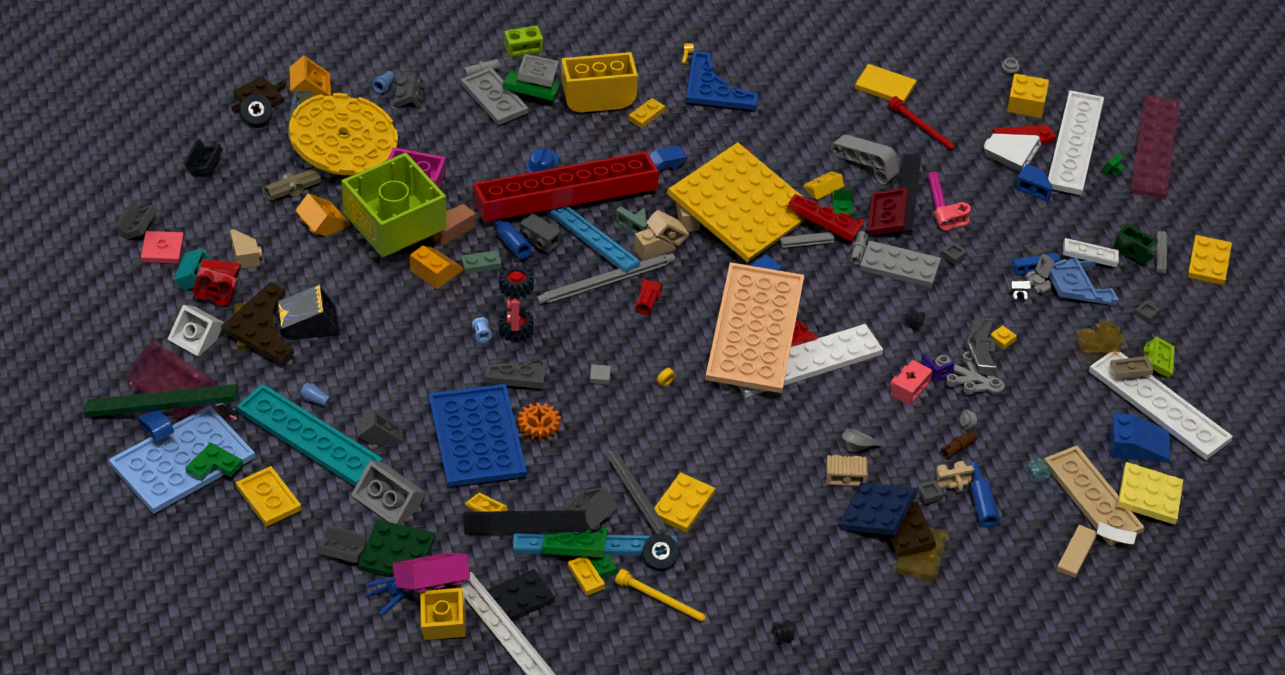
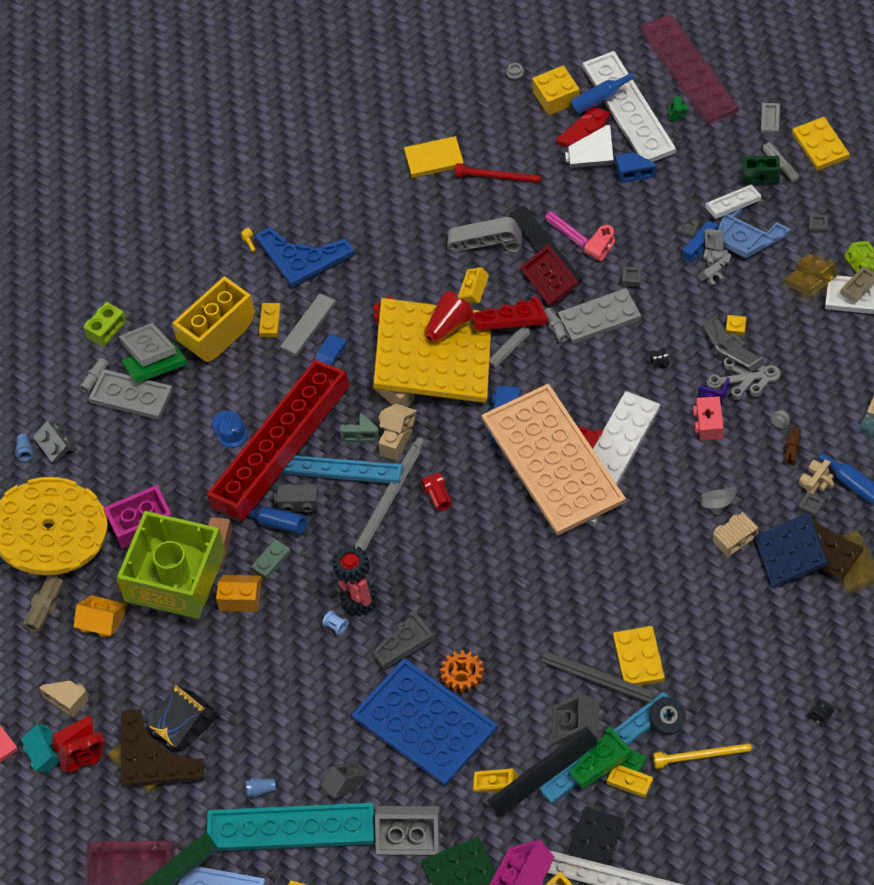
camera: 30 degrees left, 10 degrees up
(195, 330) = (100, 803): white slope -> none
(600, 374) = (466, 591): light grey tile -> none
(666, 377) = (521, 555): yellow tile -> none
(671, 133) = (308, 325): none -> light grey tile
(770, 182) = (447, 317): none -> red cone
(842, 201) = (503, 292): green slope -> none
(1057, 115) = (599, 94): none -> blue piece
(1185, 218) = (770, 118): none -> light grey tile

